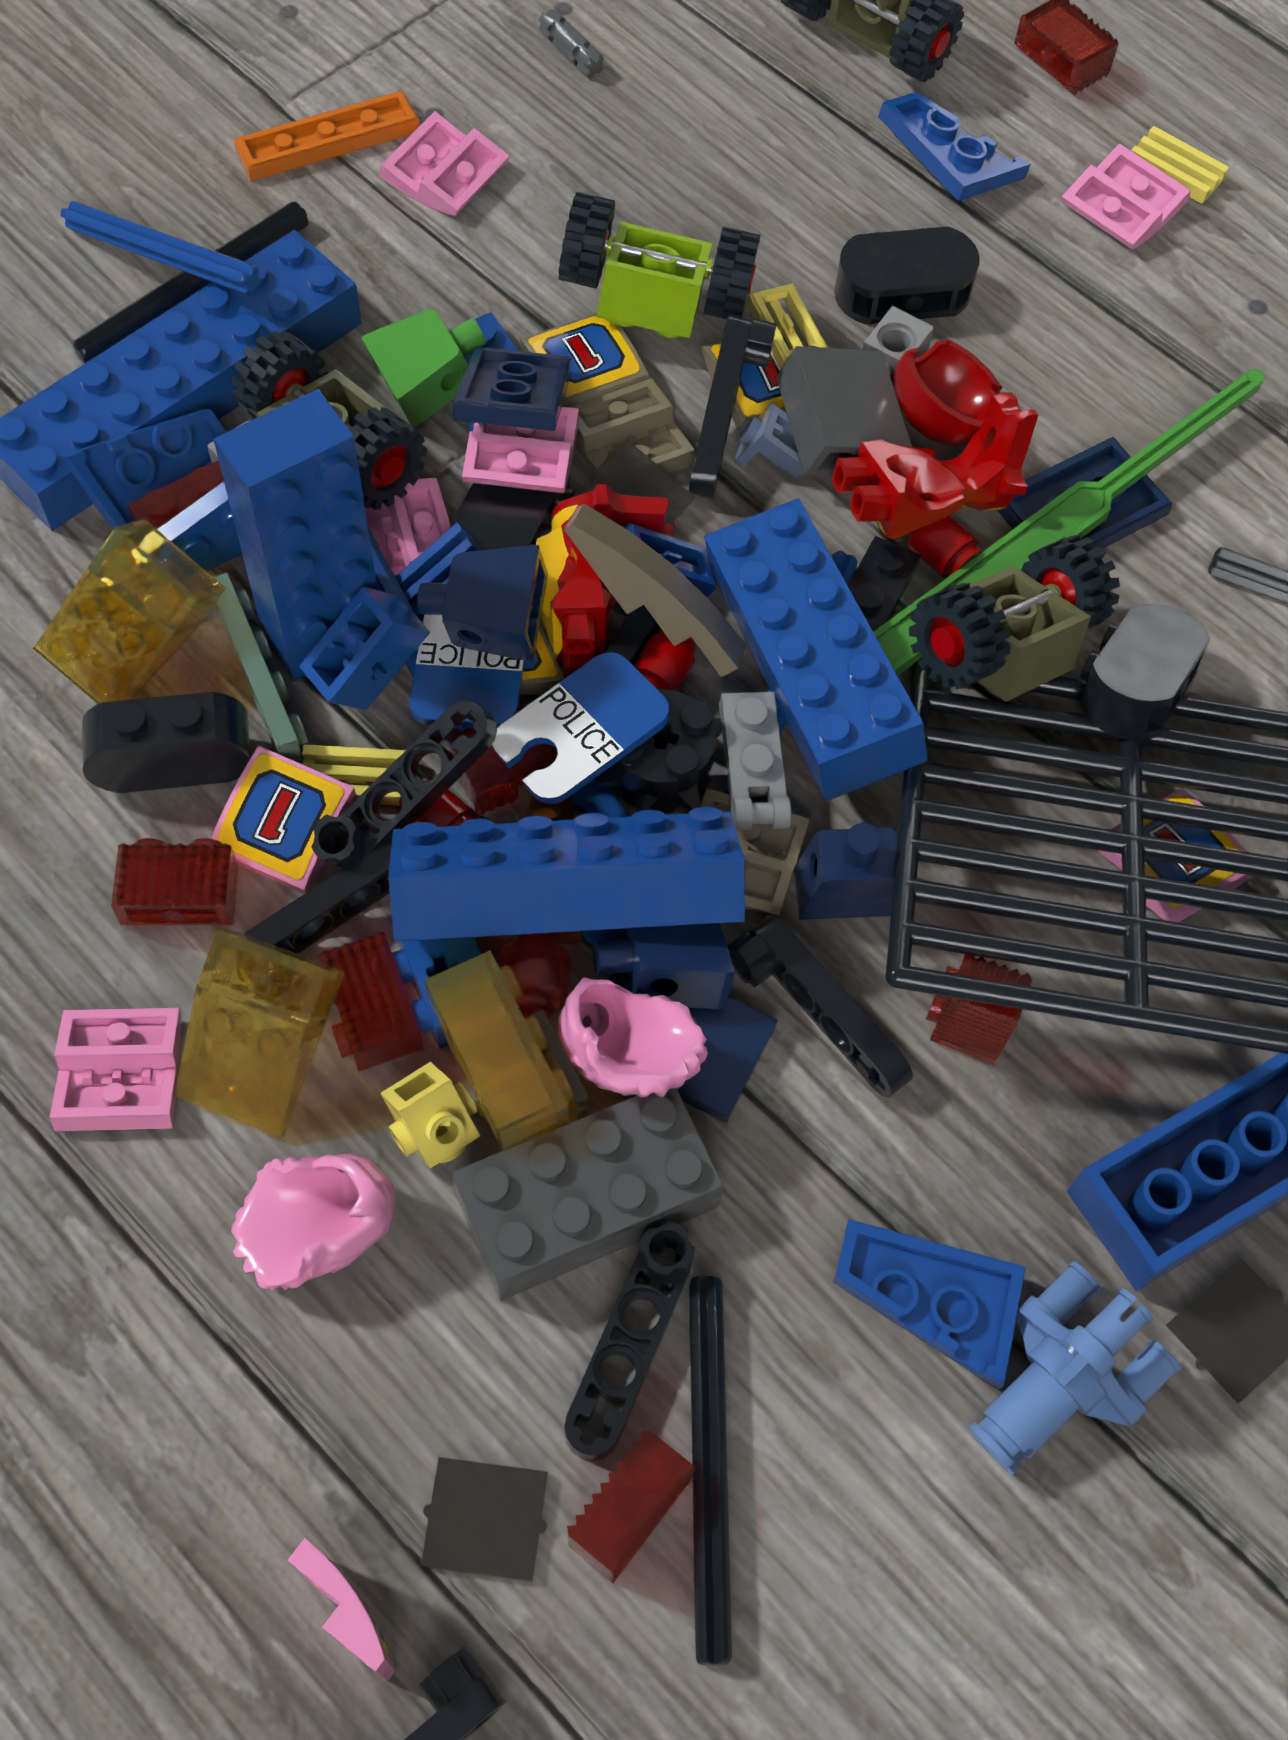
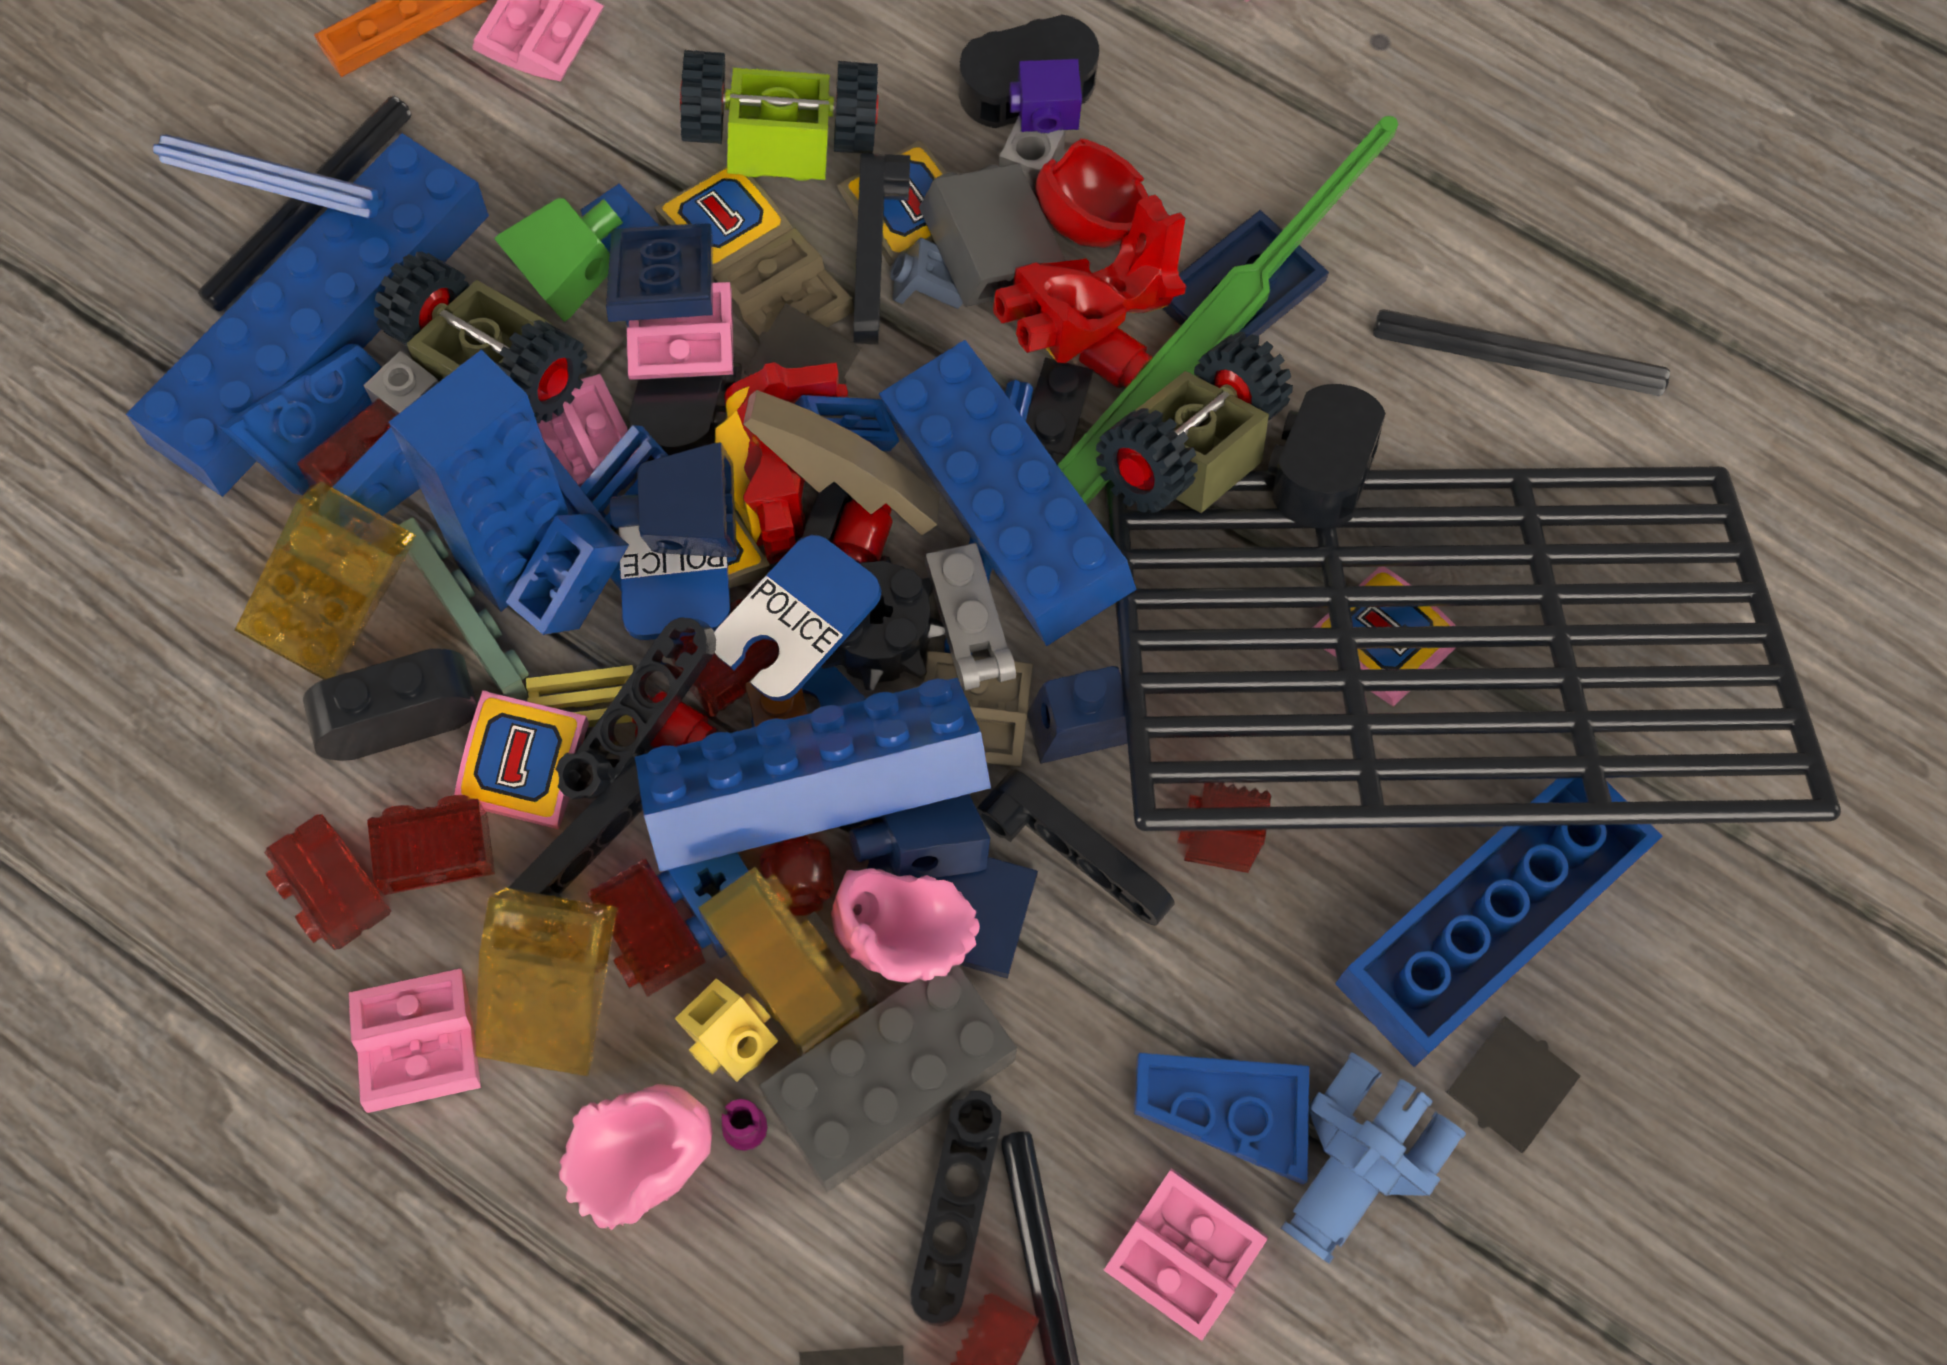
camera: 10 degrees left, 5 degrees up
(65, 900) = (326, 883): none -> clear red brick
(431, 1225) = (746, 1138): none -> magenta pin
(759, 311) = (885, 132): light yellow tile -> none
(862, 1436) = (1186, 1254): none -> bright pink slope
(921, 291) = (1047, 95): none -> dark purple brick

